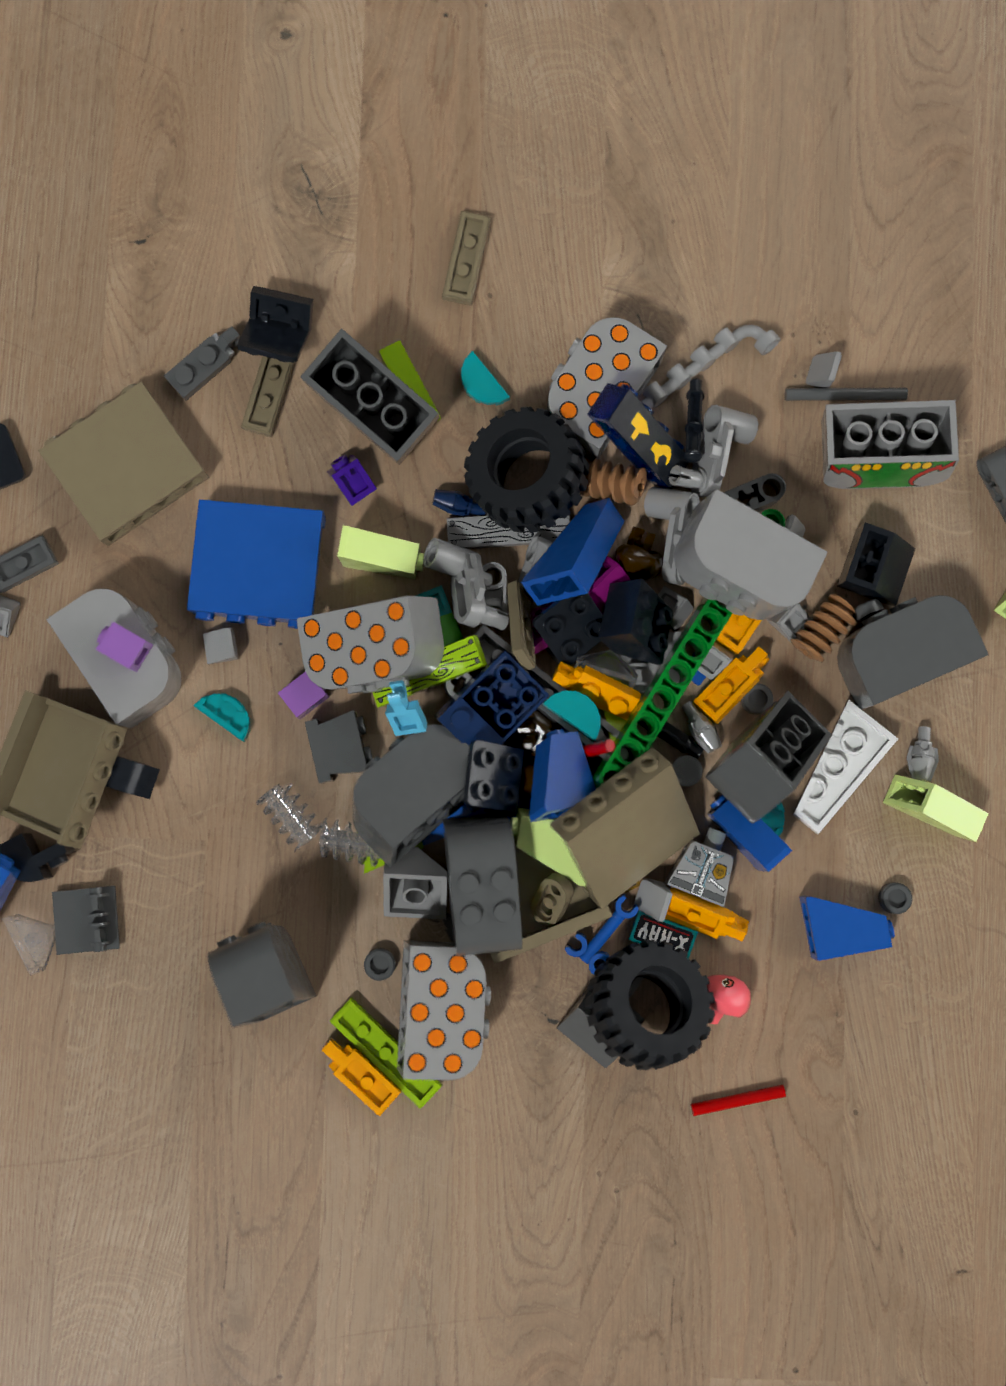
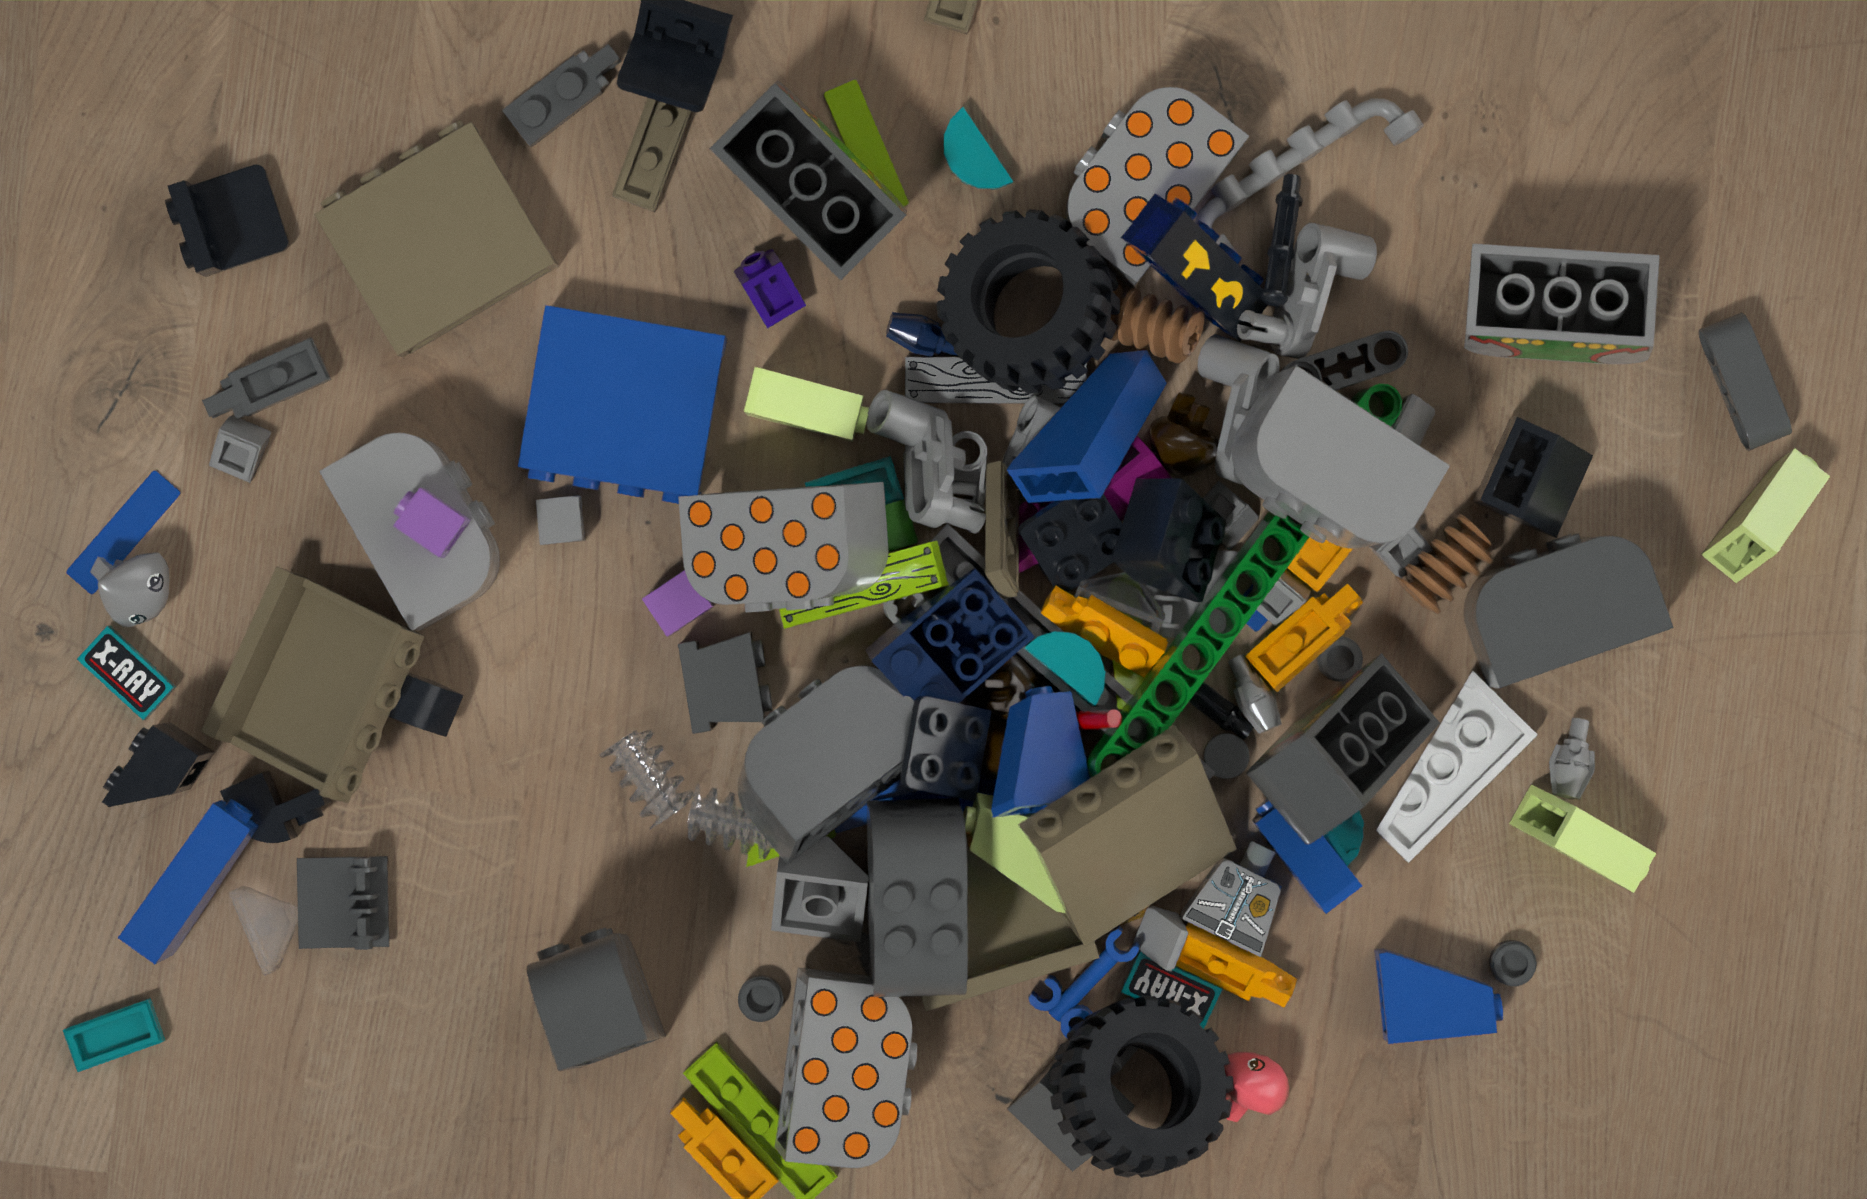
camera: 10 degrees right, 5 degrees up
(227, 713) = (563, 618): teal tile -> none
(404, 715) = (822, 651): medium azure plate -> none
(551, 899) = (1014, 927): dark tan plate -> none
(823, 369) = (1483, 175): light grey slope -> none
(823, 394) = (1514, 213): dark grey bar -> none
(867, 610) = (1513, 542): dark grey tile -> none

